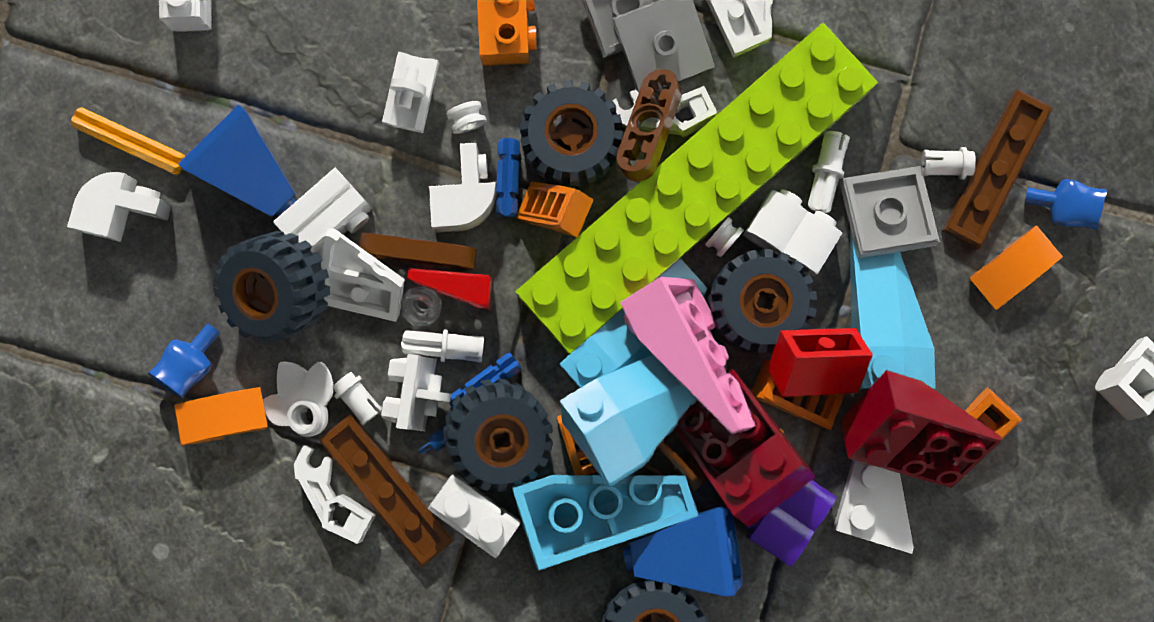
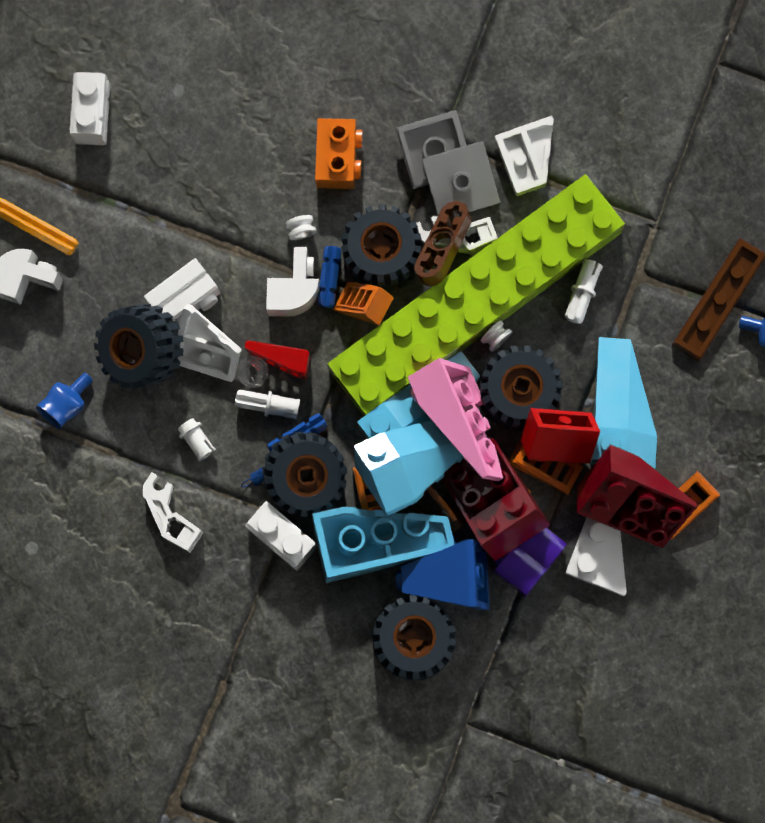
camera: 15 degrees right, 5 degrees down
(220, 416) = (88, 444): orange slope -> none
(241, 164) = (123, 251): blue slope -> none
(296, 394) = (150, 432): white plate -> none
(386, 490) = (213, 513): reddish brown tile -> none
(410, 92) = (258, 205): white hips -> none
(418, 251) = (255, 329): reddish brown beam -> none
(418, 394) = (245, 438): white hips -> none
(793, 230) = (552, 335): white brick -> none
(889, 212) = (629, 326): light grey plate -> none
(949, 163) = (680, 291): white pin -> none
(1016, 267) = (727, 377): orange slope -> none

